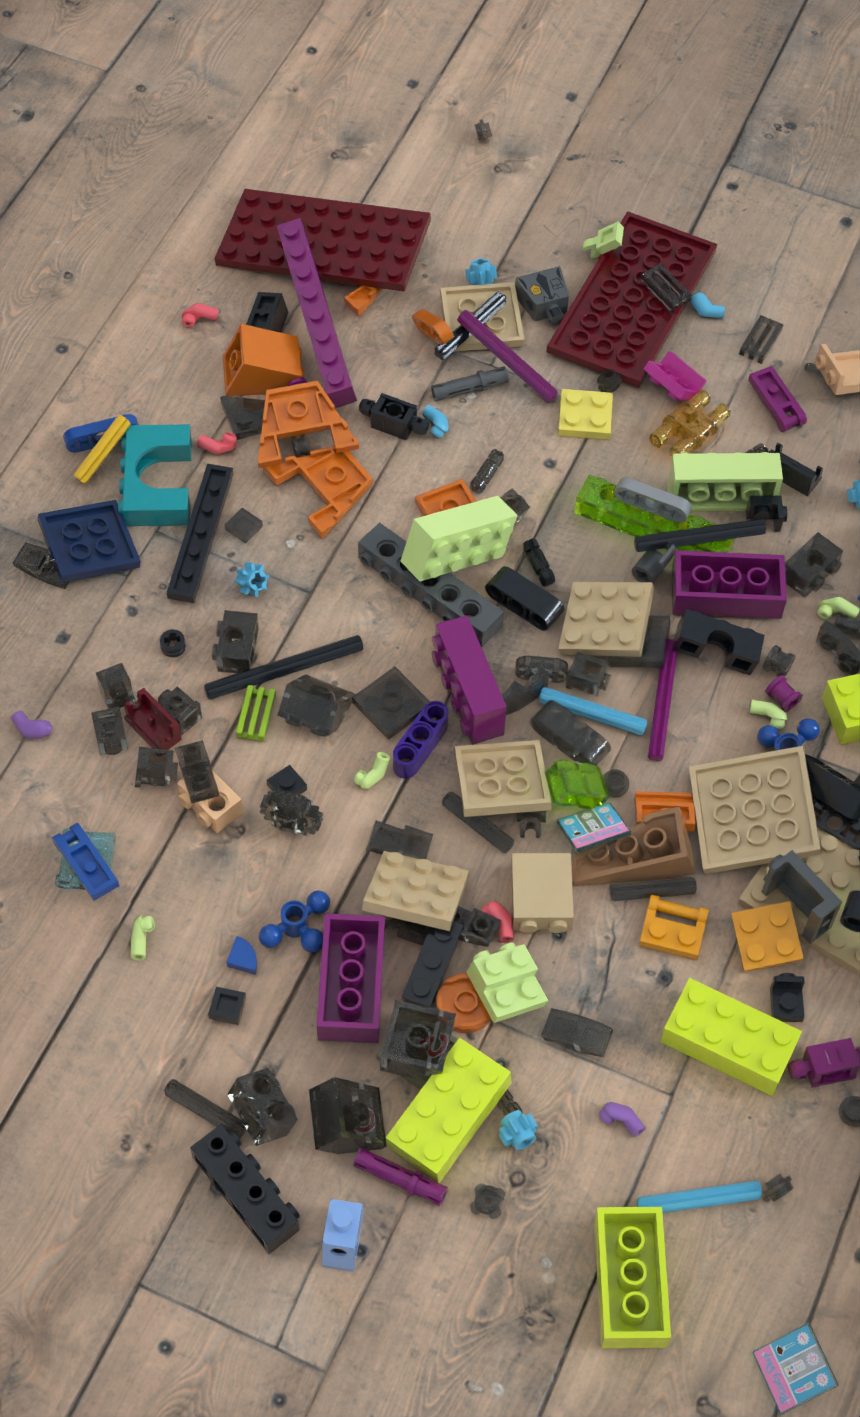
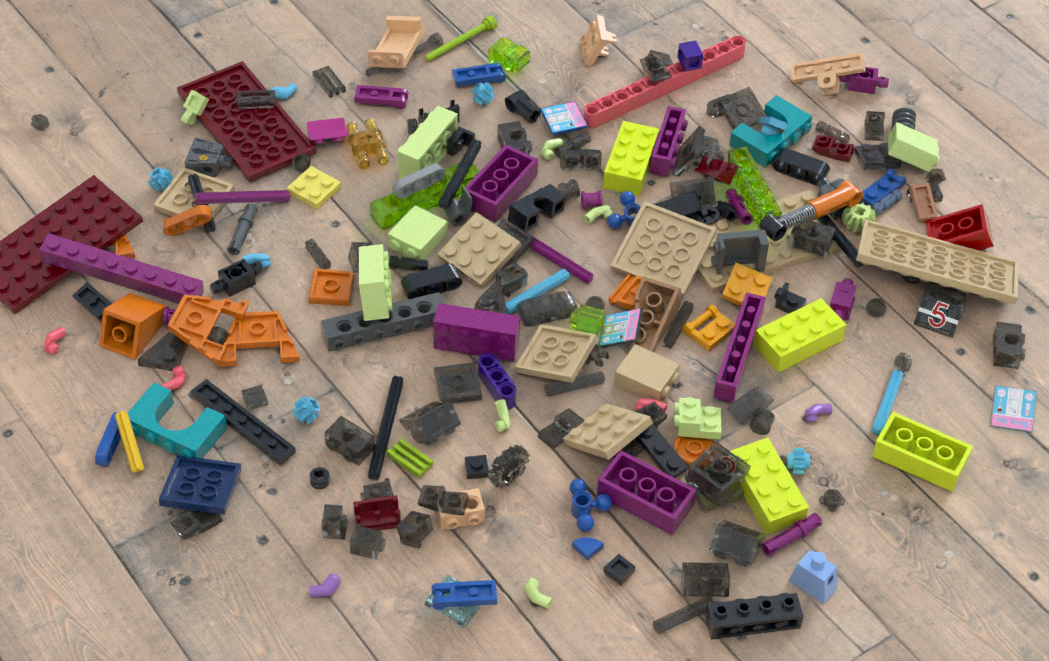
camera: 60 degrees left, 10 degrees down
(556, 1058) = (762, 421): none -> clear smoke wheel
(585, 546) = (417, 233): none -> yellowish green brick
(654, 973) = (739, 347): none -> magenta brick

